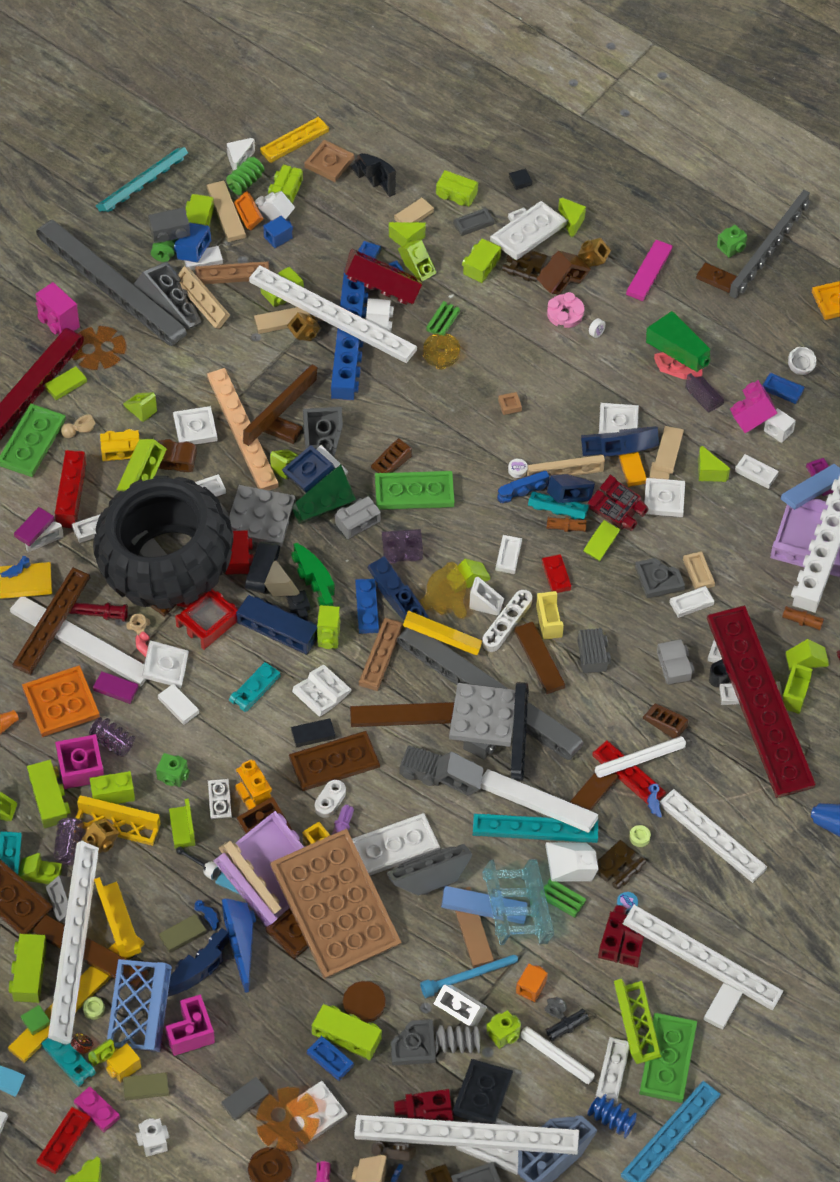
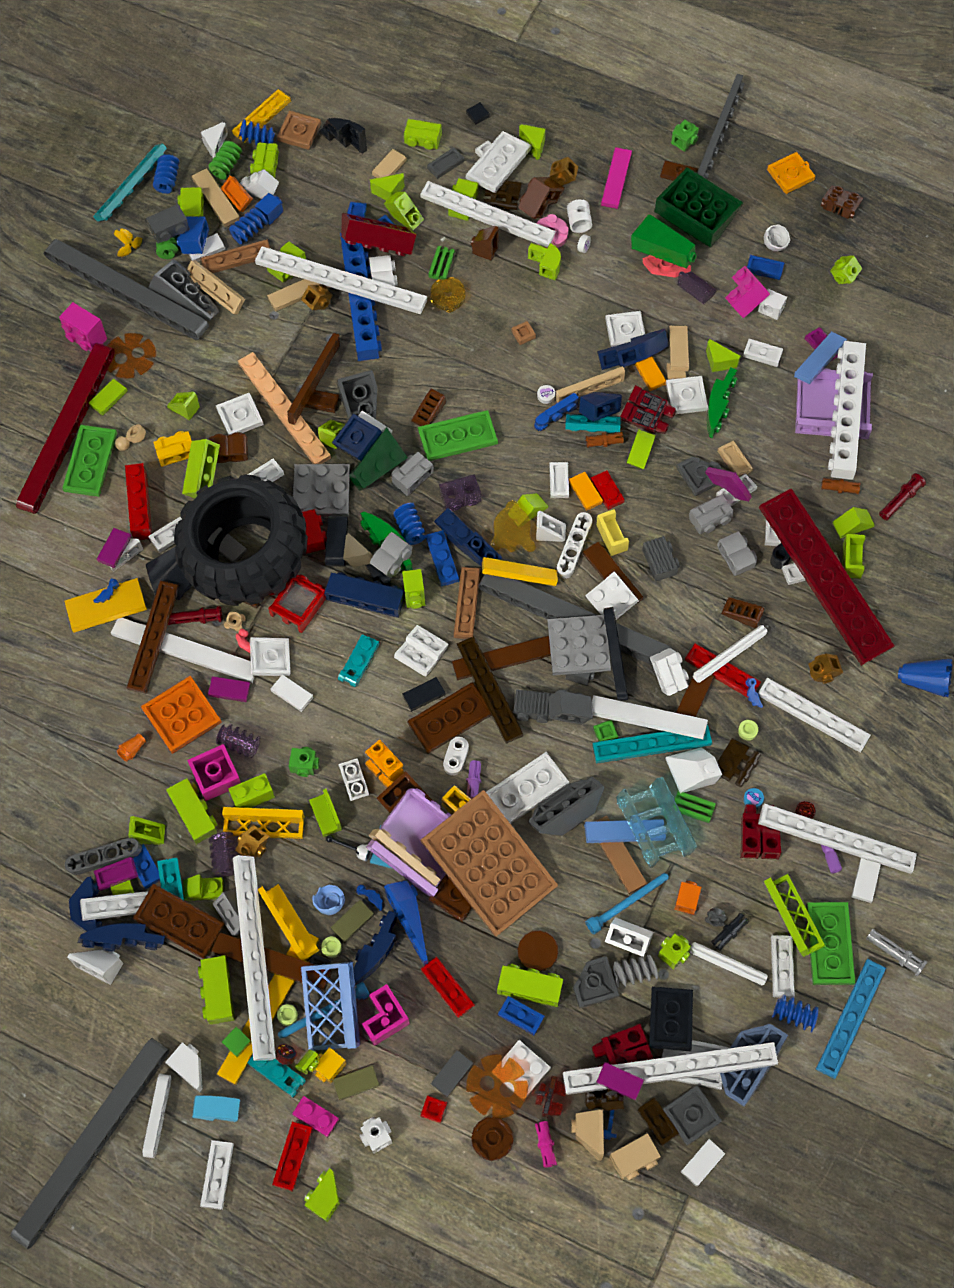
camera: 10 degrees left, 10 degrees up
(83, 559) = (166, 569): none -> black slope
(124, 231) = (126, 237): none -> yellow plant
(154, 953) = (331, 947): none -> yellowish green tile
(164, 906) = (329, 899): none -> light blue hair
(173, 1001) = (361, 993): none -> dark azure piece
(180, 177) = (166, 173): none -> blue piece
(217, 1128) = (433, 1109): none -> red tile
(250, 243) = (247, 224): none -> blue piece
(262, 1016) = (447, 987): none -> red tile
(283, 155) = (256, 133): none -> blue piece
(313, 589) = (391, 555): none -> light grey brick
(335, 1149) = (550, 1107): none -> clear red hips
(341, 565) = (409, 524): none -> blue piece
(381, 741) = (489, 690): none -> dark brown tile
(411, 1134) = (620, 1081): none -> magenta tile
(491, 805) = (605, 731): none -> bright green tile
(494, 307) = (486, 242): none -> reddish brown slope
(503, 279) = (487, 214): none -> white tile
(533, 570) = (585, 491): none -> light orange tile
(536, 673) = (612, 593): none -> white plate
(555, 336) = (549, 259): none -> lime brick
(571, 760) = (669, 671): none -> white brick
(599, 299) = (579, 216): none -> white wheel
(658, 618) = (711, 514): none -> light grey brick
(679, 923) = (806, 809): none -> clear red tile
(683, 588) = (729, 481): none -> magenta tile
(693, 978) = (832, 859): none -> medium lavender piece
(696, 508) = (719, 402): none -> green slope
(725, 313) = (697, 206): none -> dark green slope
(736, 790) = (825, 668): none -> pearl gold brick
(742, 1087) = (904, 957): none -> light grey pin

